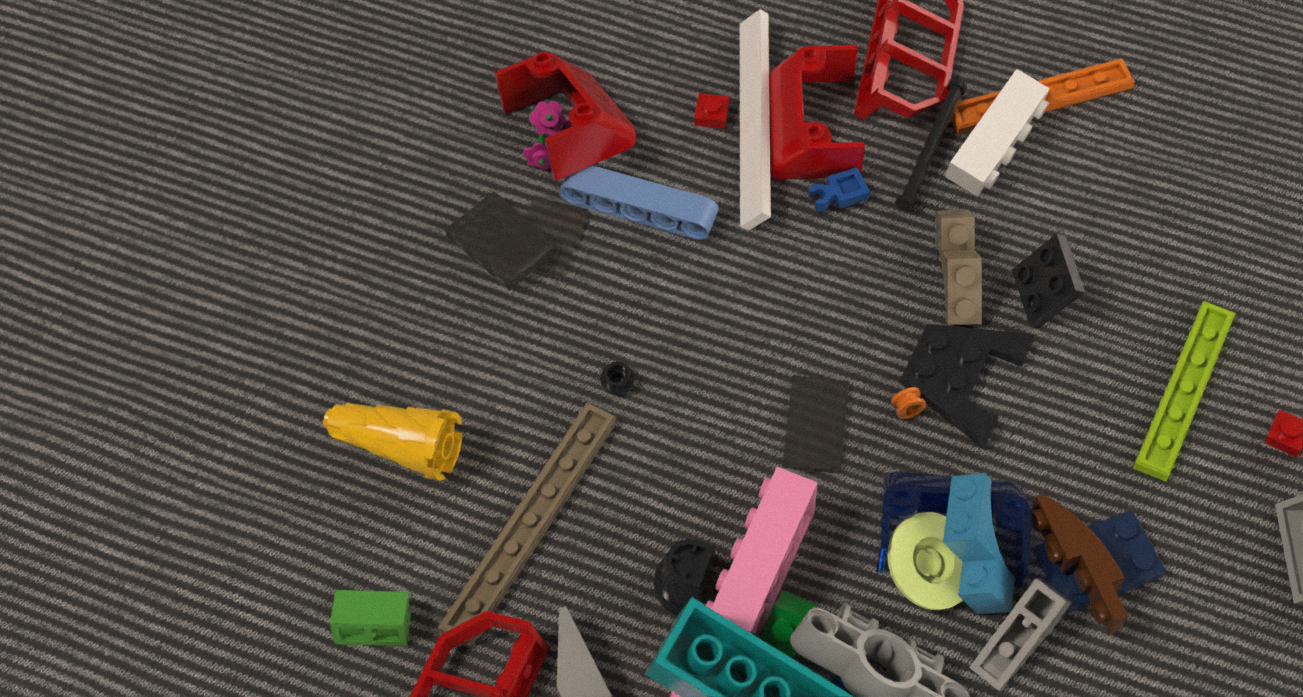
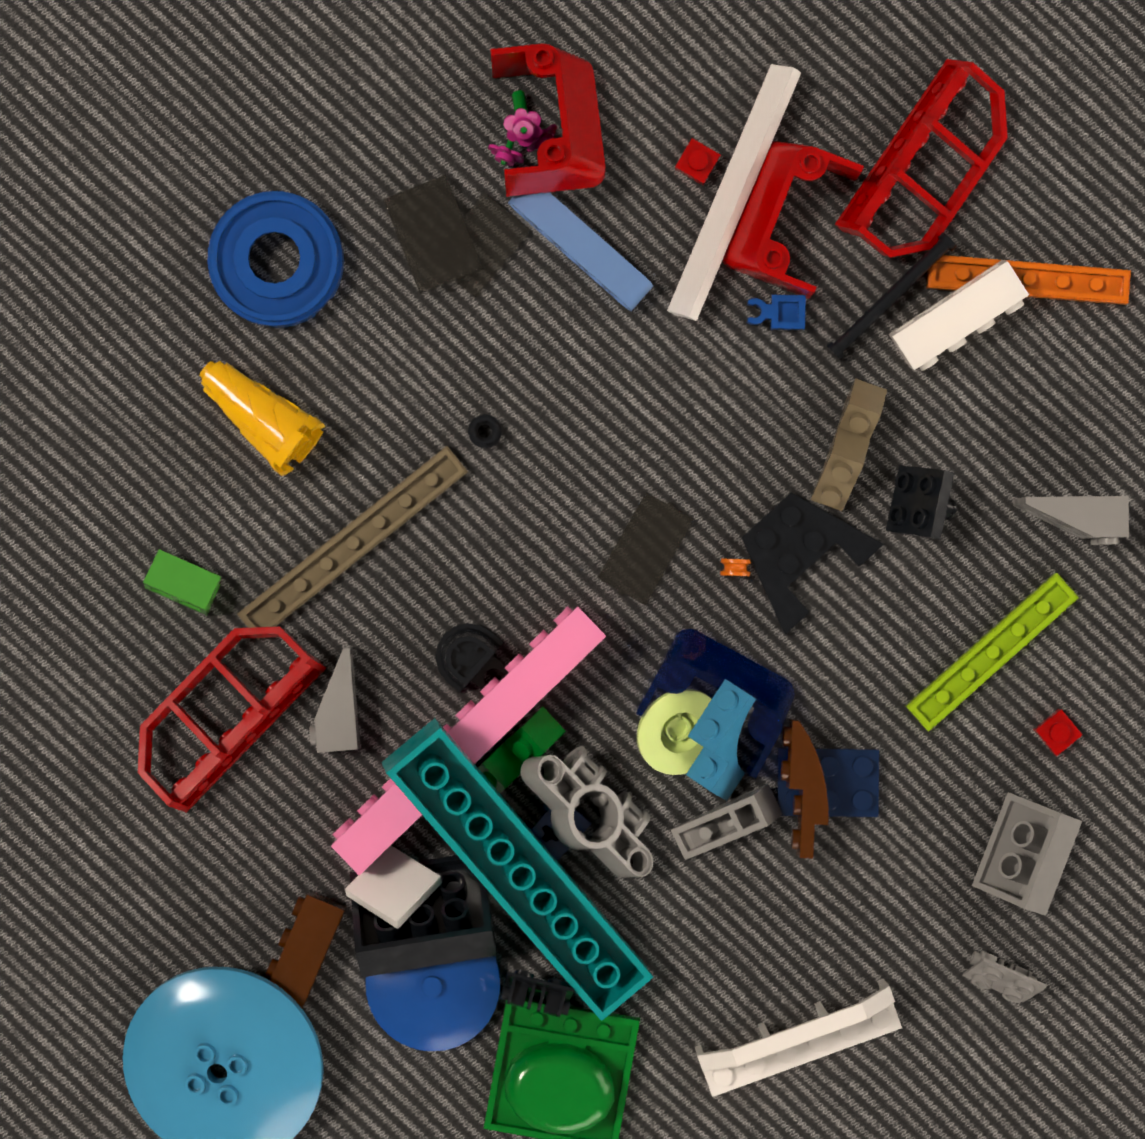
camera: 20 degrees right, 30 degrees up
(371, 344) = (282, 302): none -> blue piece
(1193, 238) = (1086, 517): none -> light grey slope

